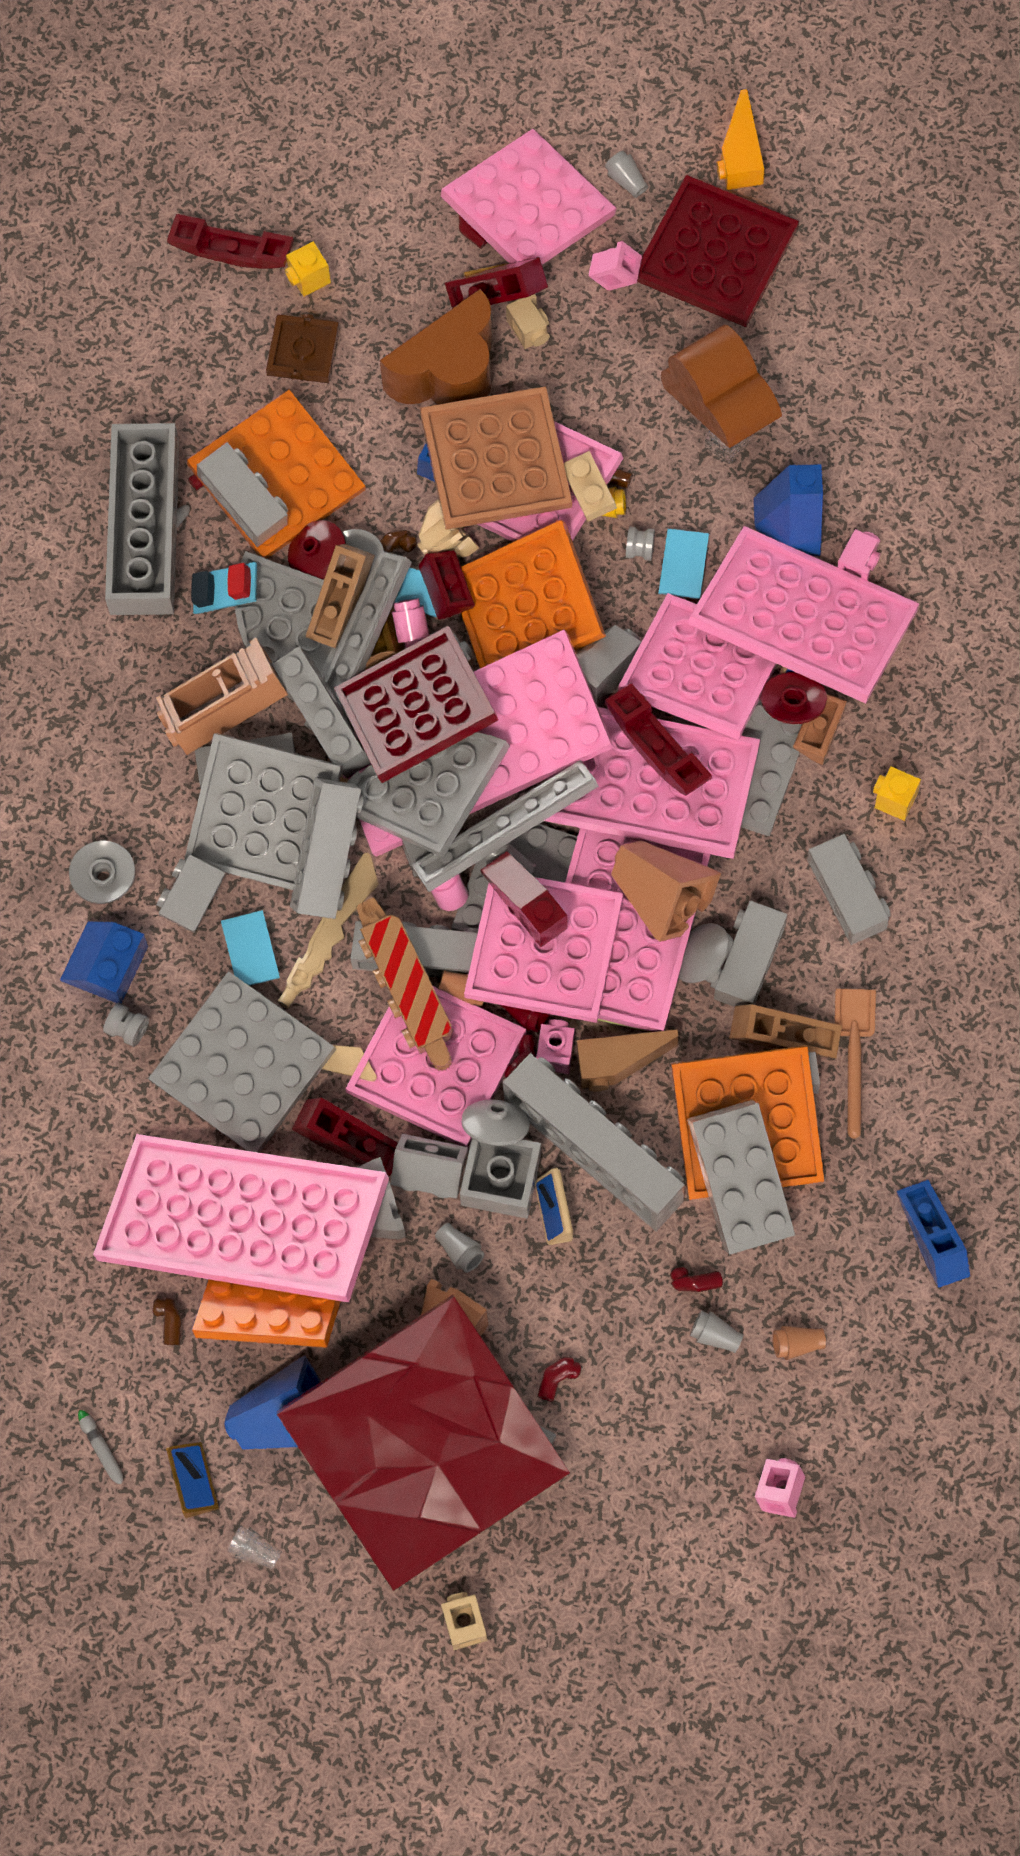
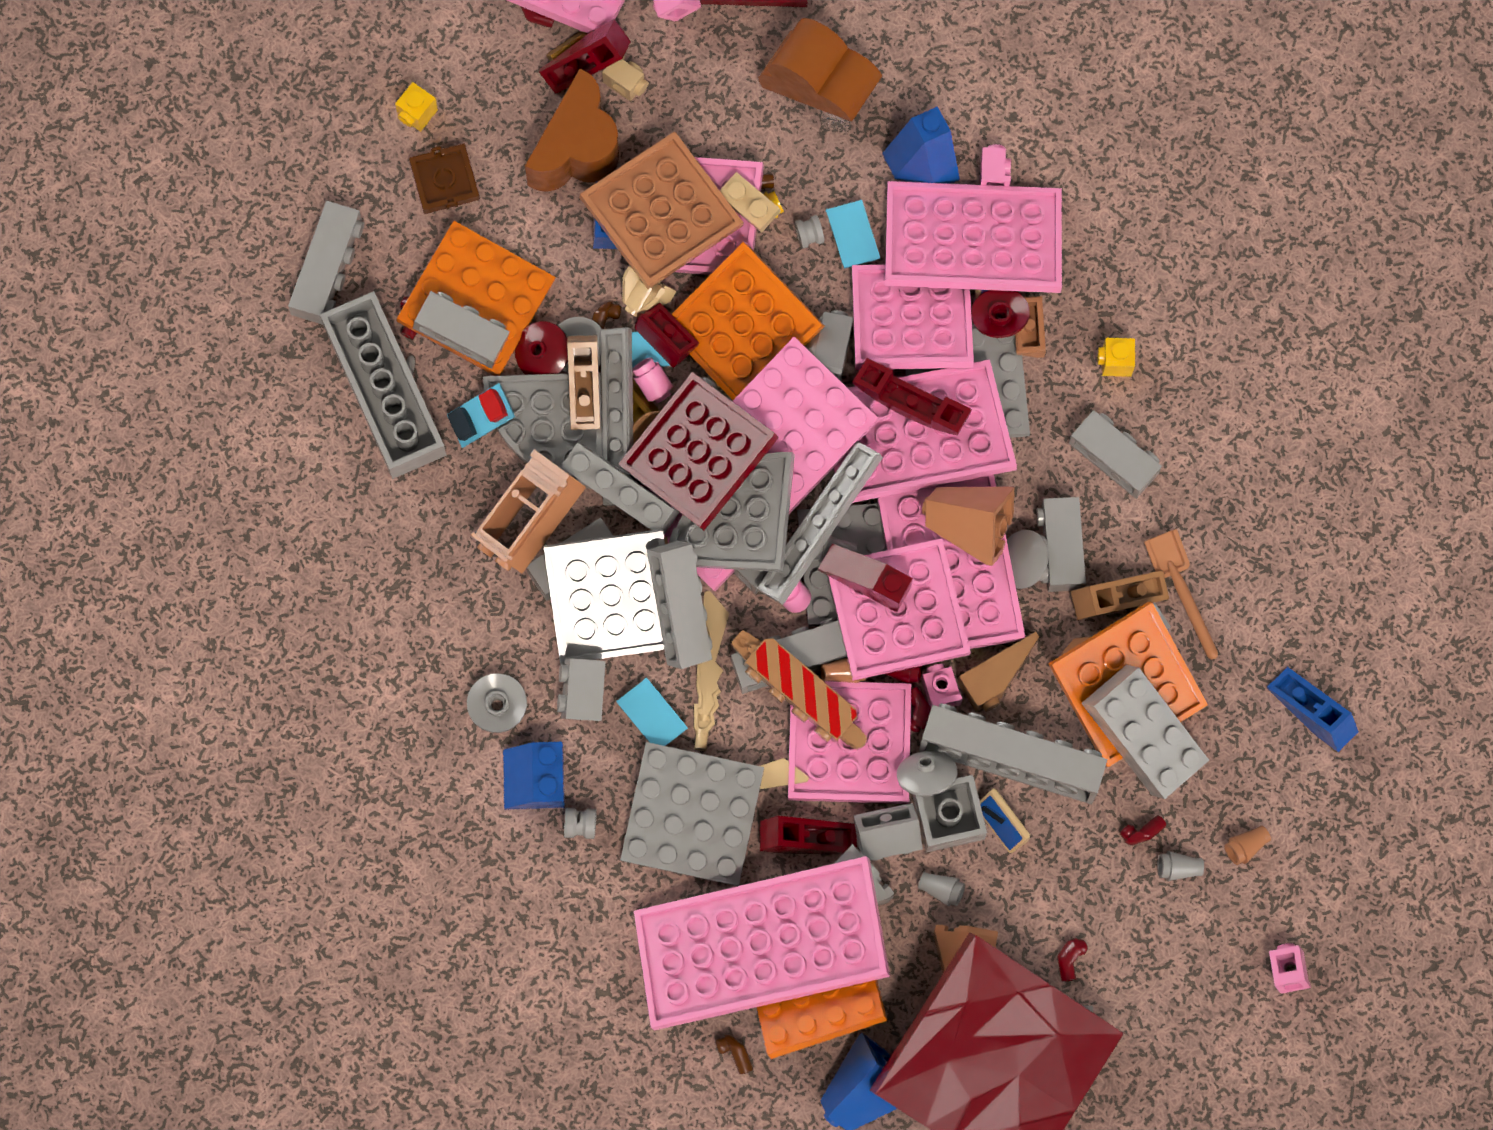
camera: 30 degrees left, 5 degrees up
(148, 379) = (326, 261): none -> light grey brick
(229, 246) = (338, 113): dark red slope -> none

